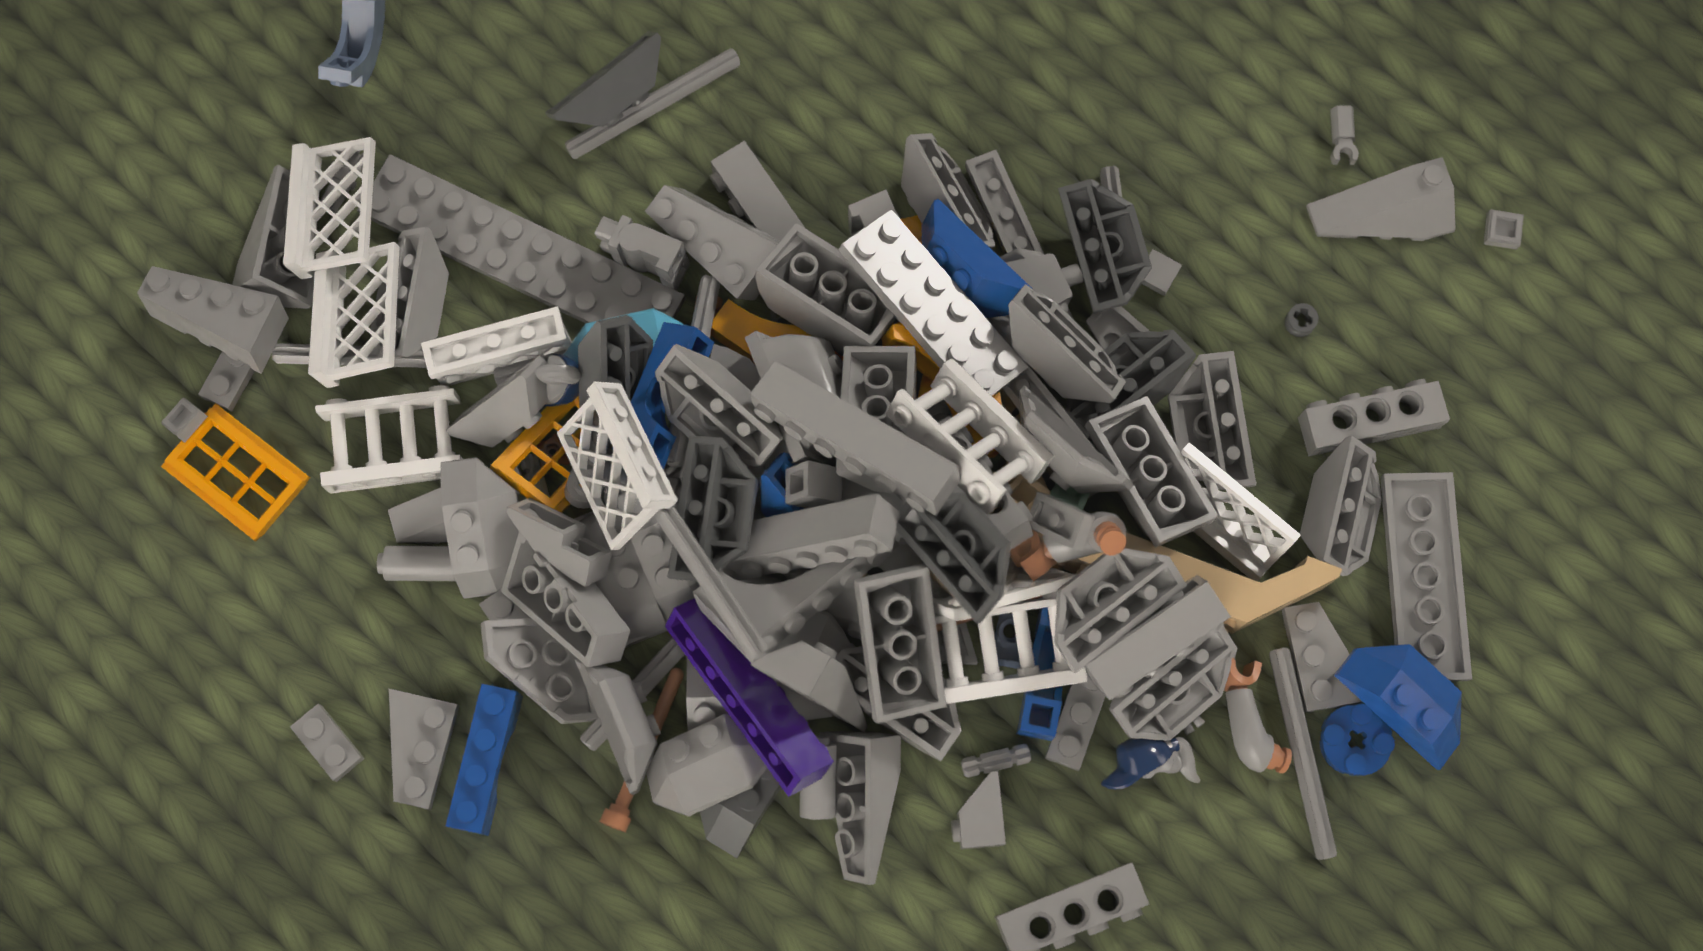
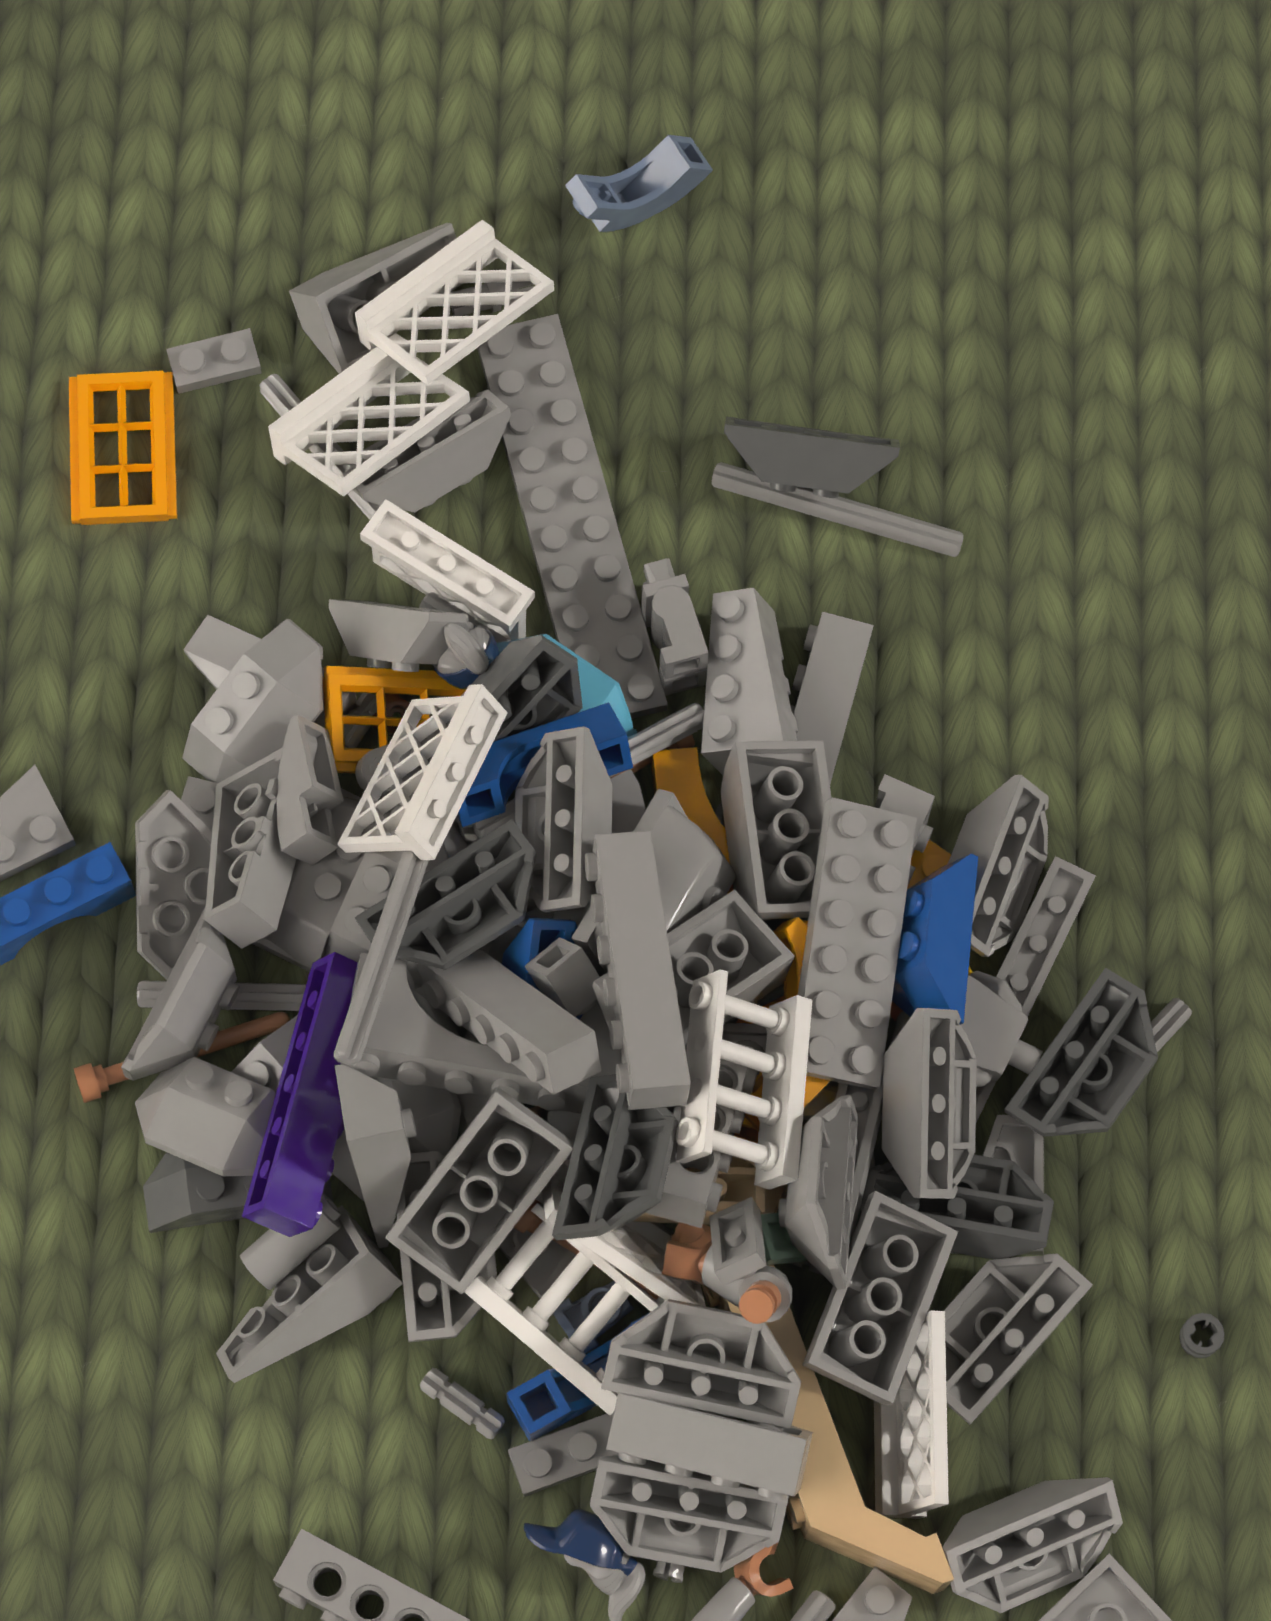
camera: 45 degrees right, 5 degrees down
(184, 419) = (131, 358): light grey tile -> none
(217, 313) = (258, 301): light grey wedge -> none
(377, 472) = (235, 572): white fence -> none
(415, 563) = (173, 681): light grey brick -> none
(981, 817) = (391, 1433): light grey slope -> none
(1162, 272) = (1119, 1148): light grey tile -> none
(1424, 399) = (1172, 1521): light grey brick -> none

